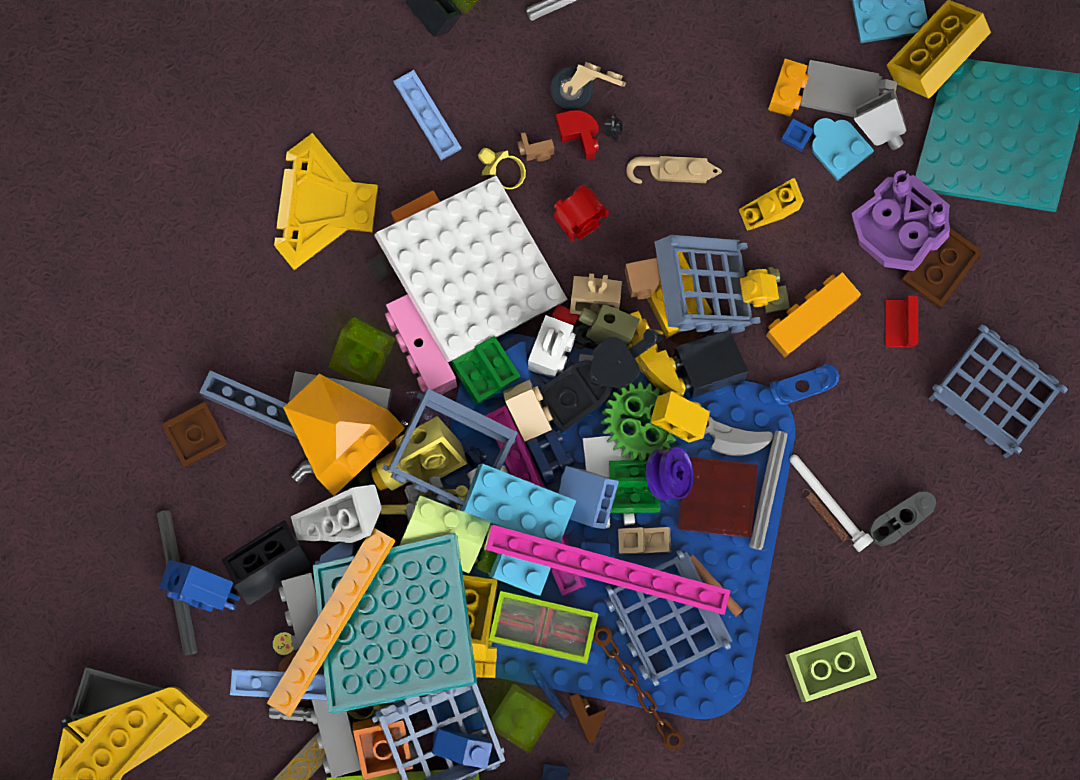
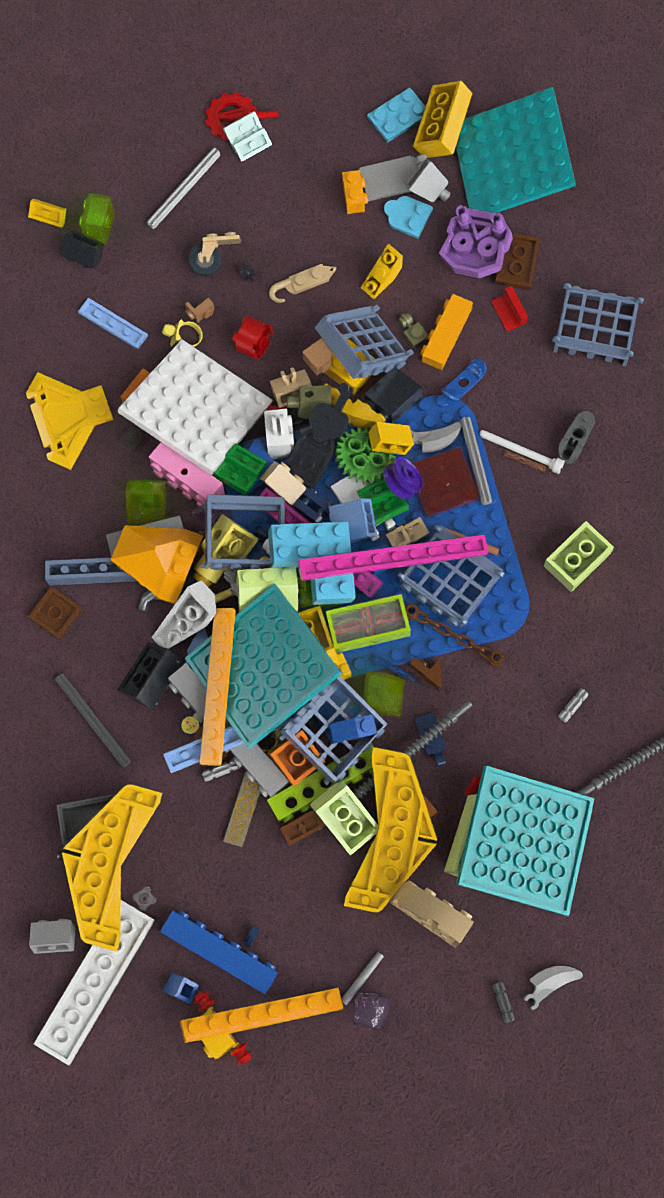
camera: 20 degrees left, 5 degrees down
(197, 587) = (110, 712): blue brick -> none
(581, 126) = (222, 282): red brick -> none
(759, 287) = (401, 329): yellow brick -> none
(797, 135) = (375, 220): blue plate -> none

